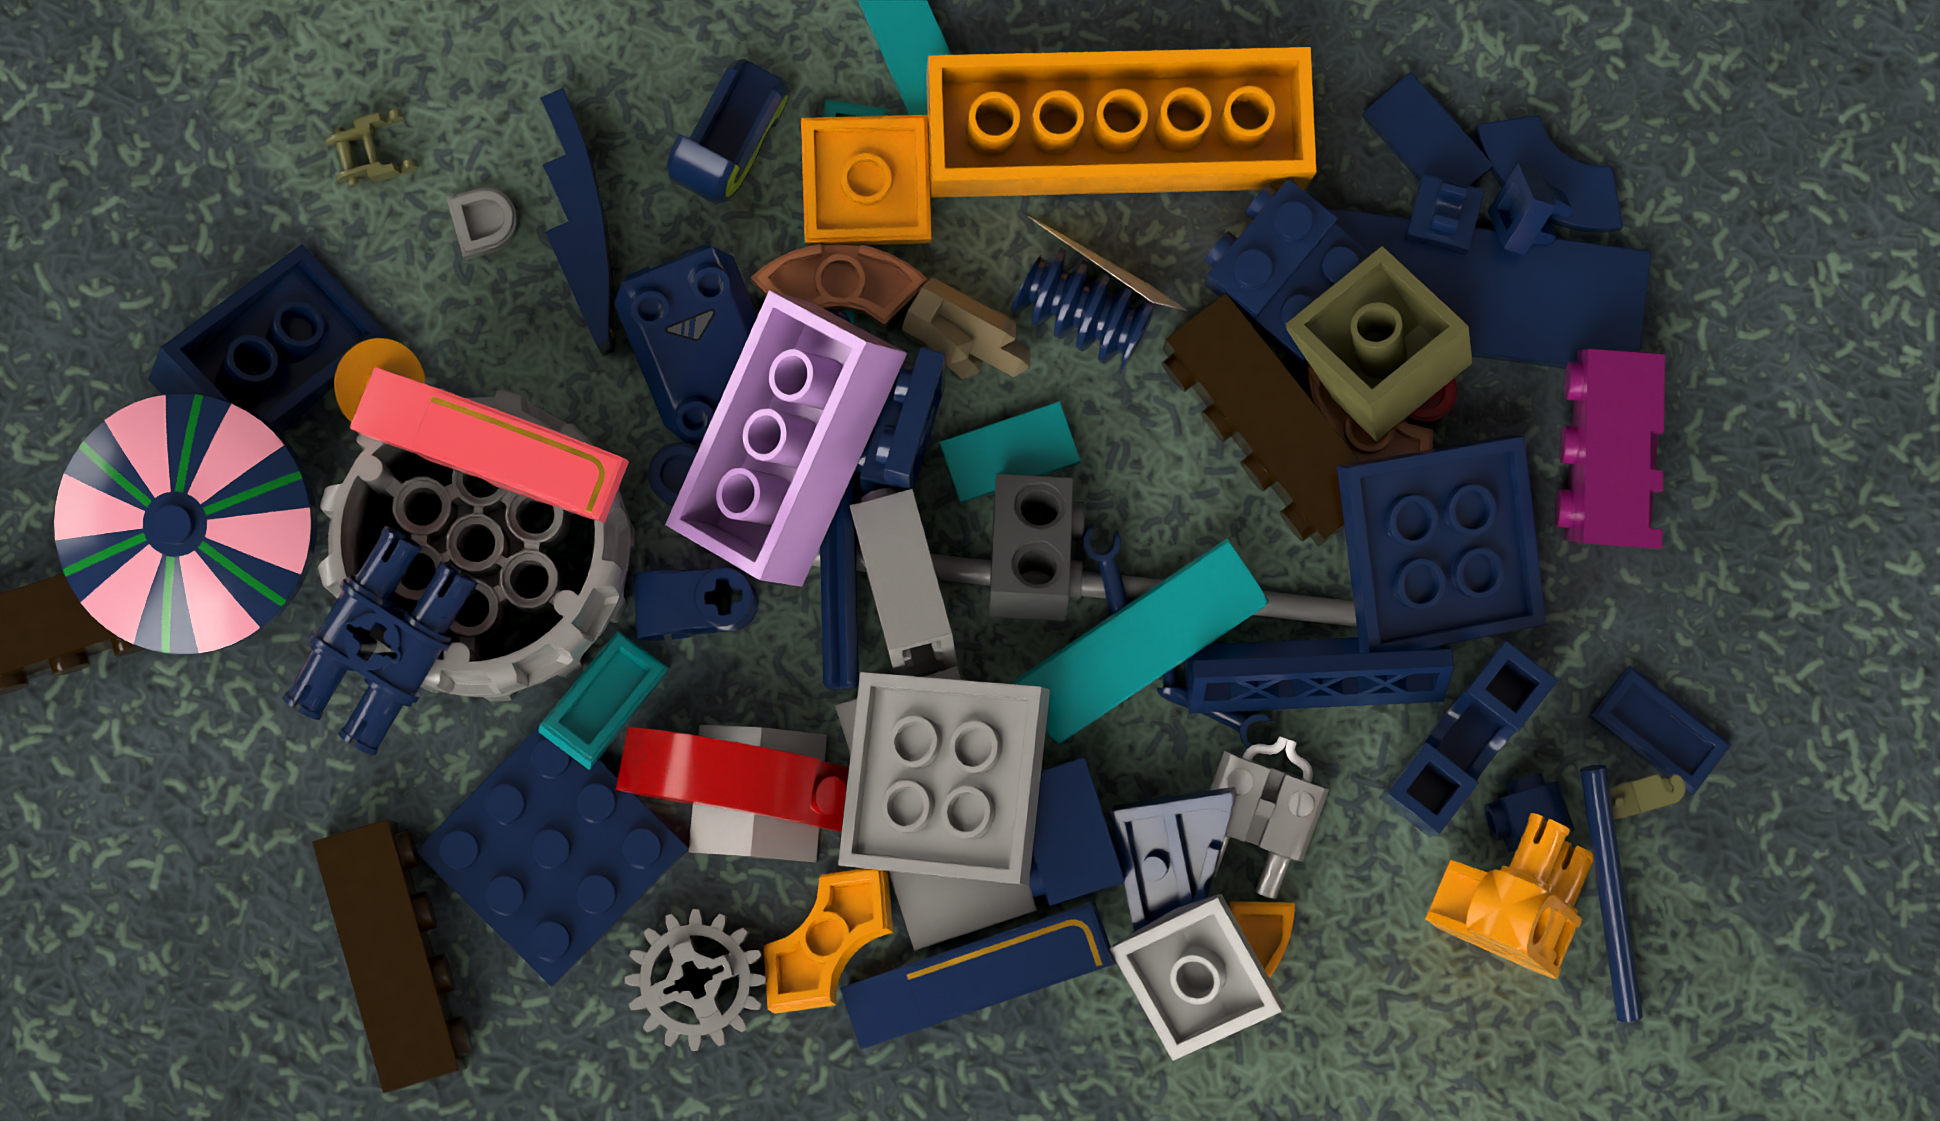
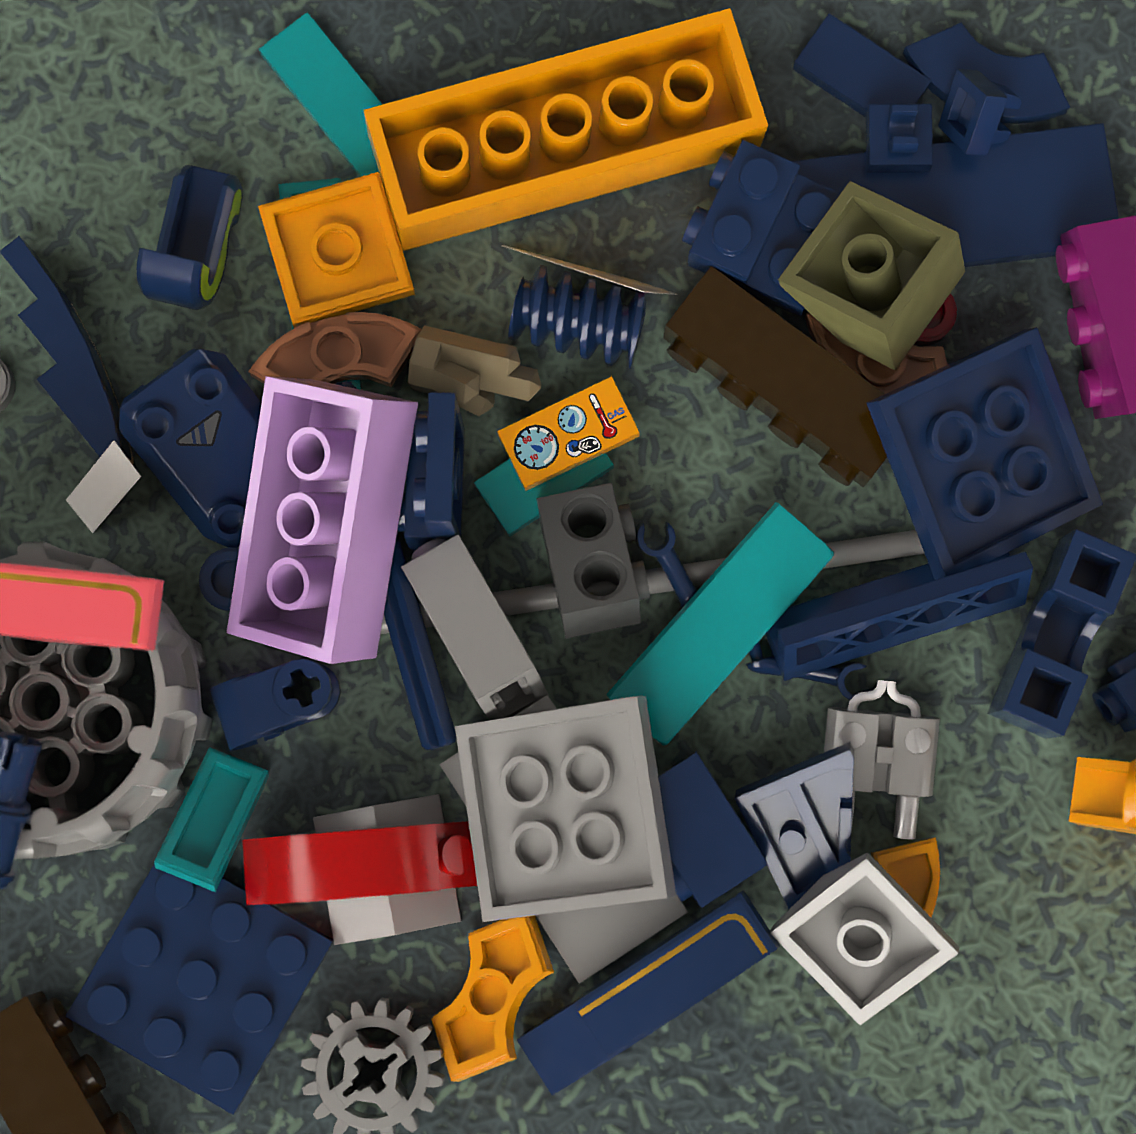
camera: 10 degrees left, 0 degrees up
(581, 353) = (103, 487): none -> white sticker
(1044, 419) = (568, 433): none -> light orange tile

